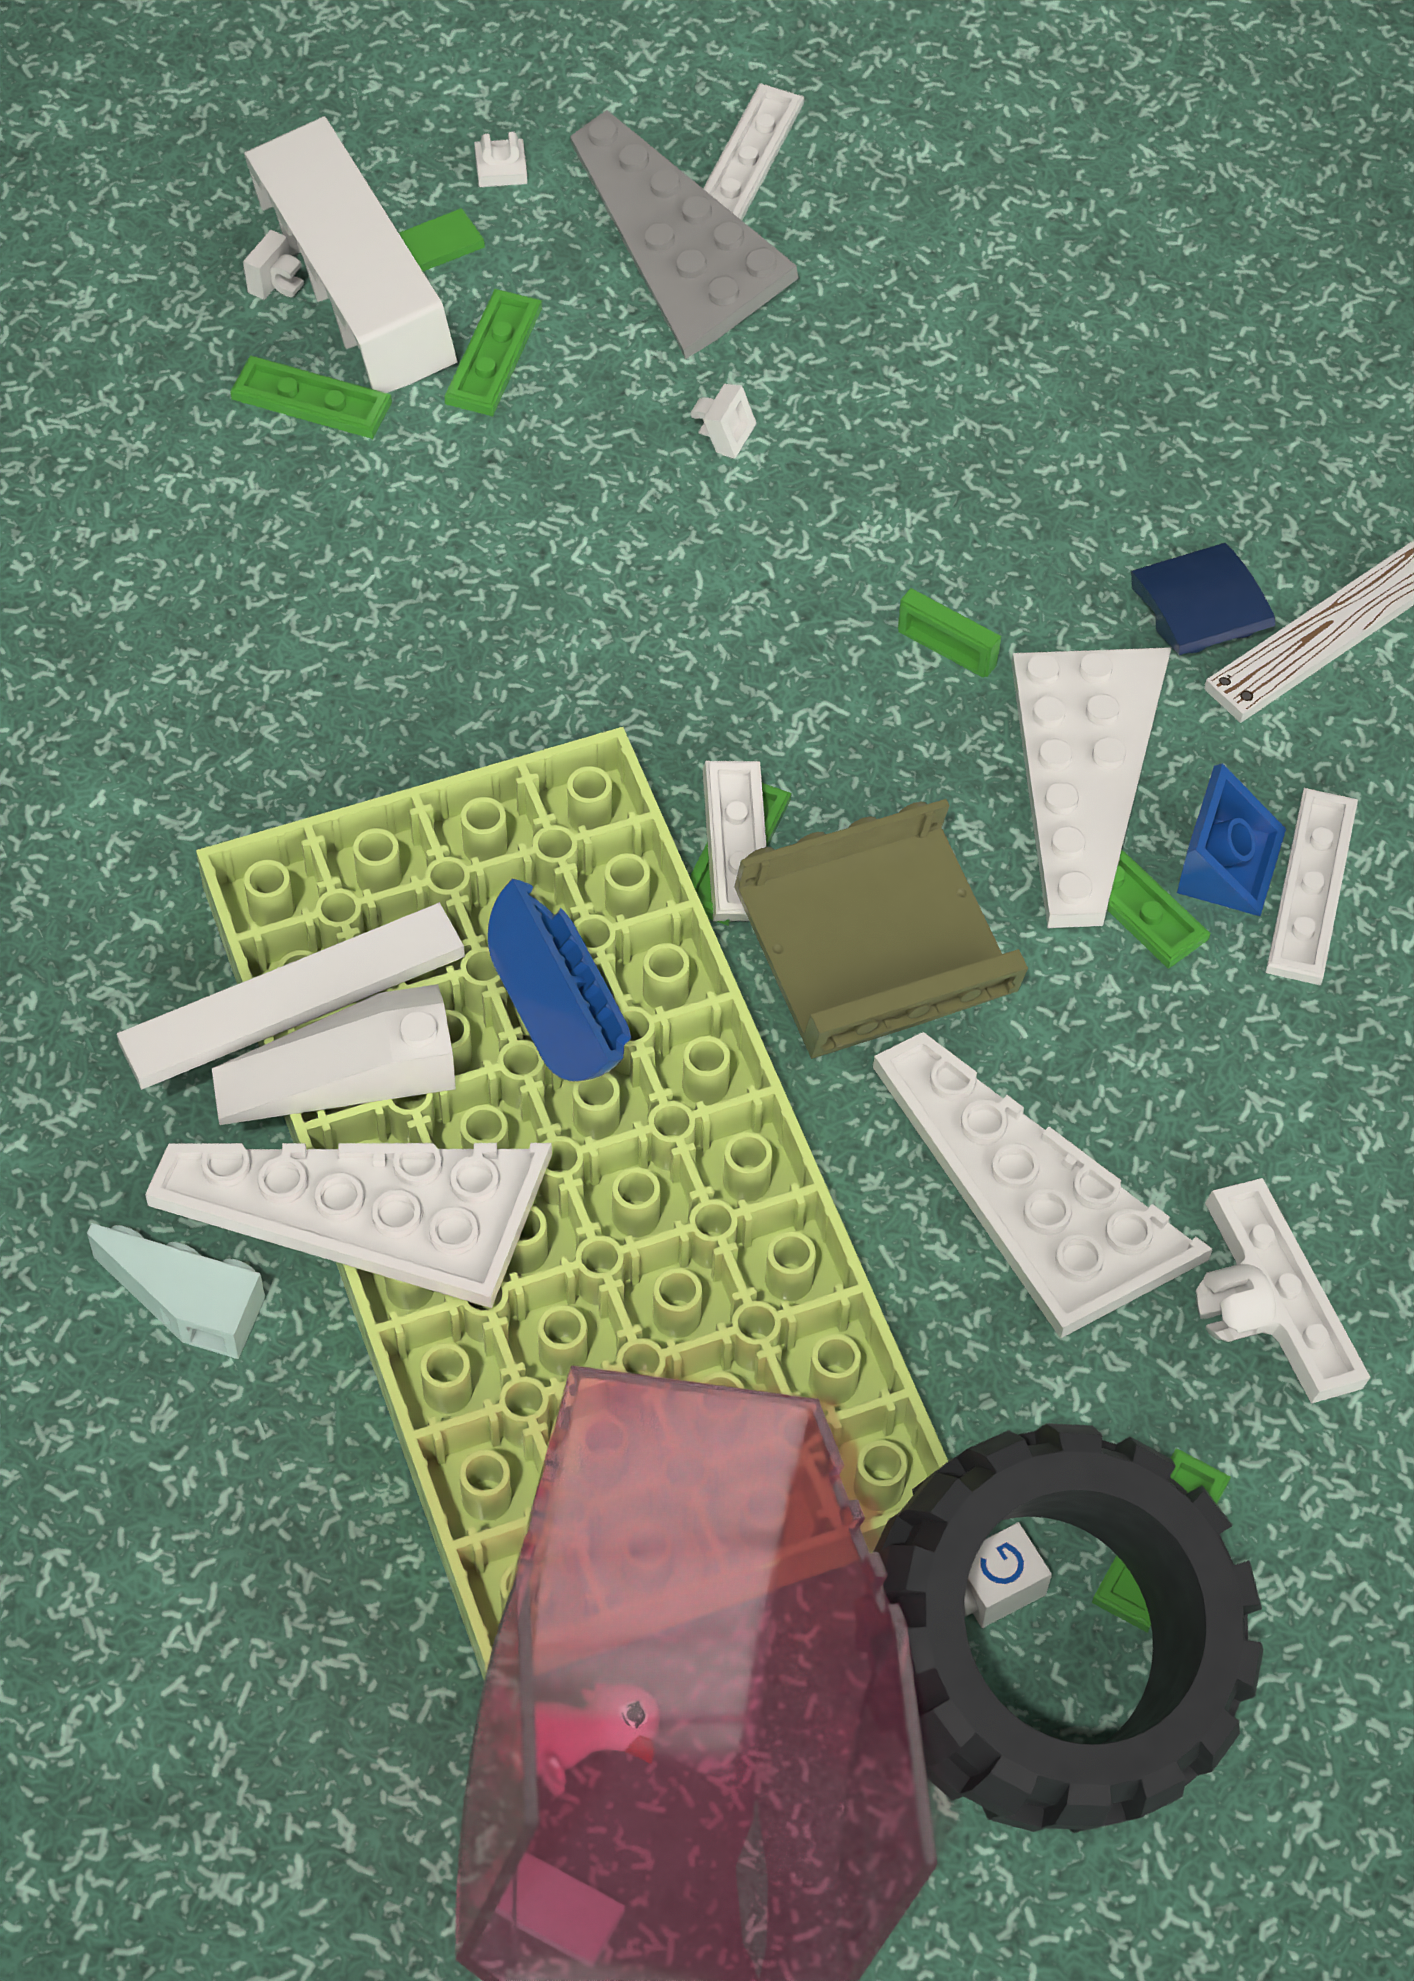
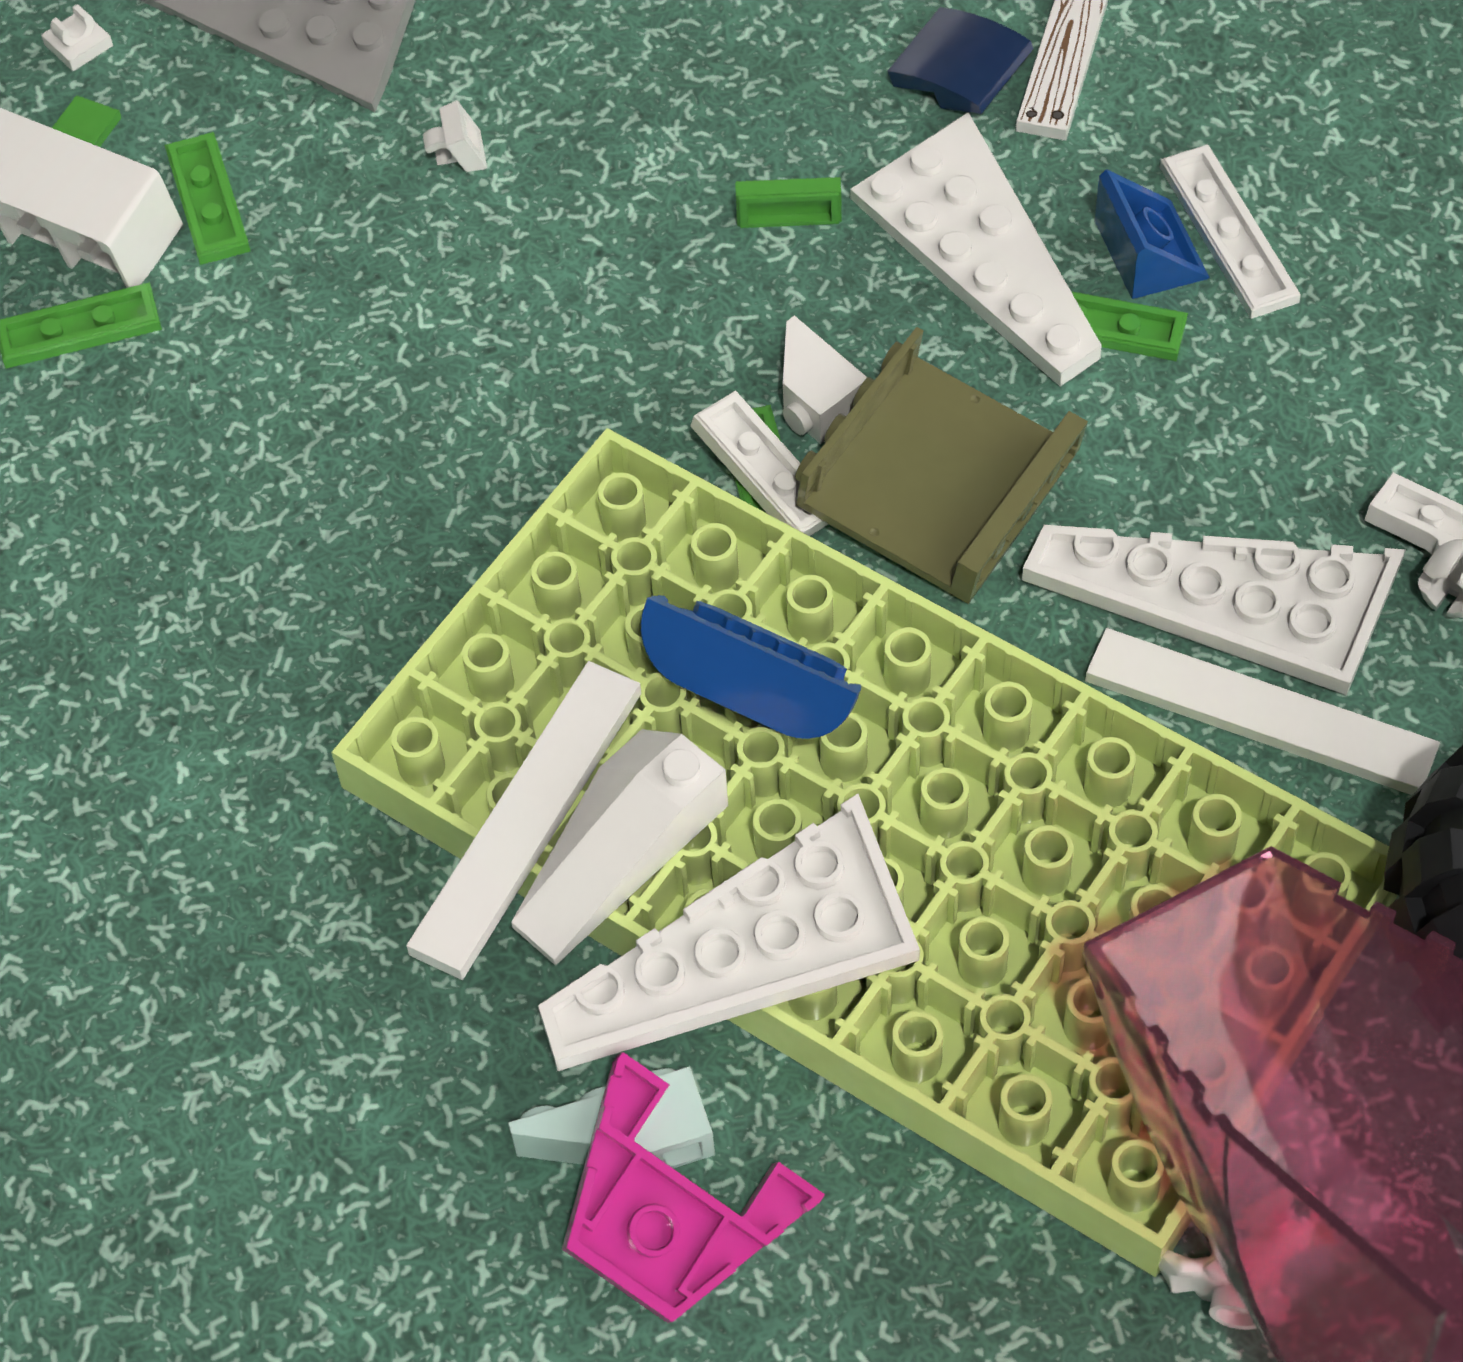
camera: 30 degrees left, 0 degrees up
(134, 1378) = (653, 1226): none -> dark pink wing
(836, 789) = (815, 382): none -> white slope
(970, 1296) = (1262, 712): none -> white tile

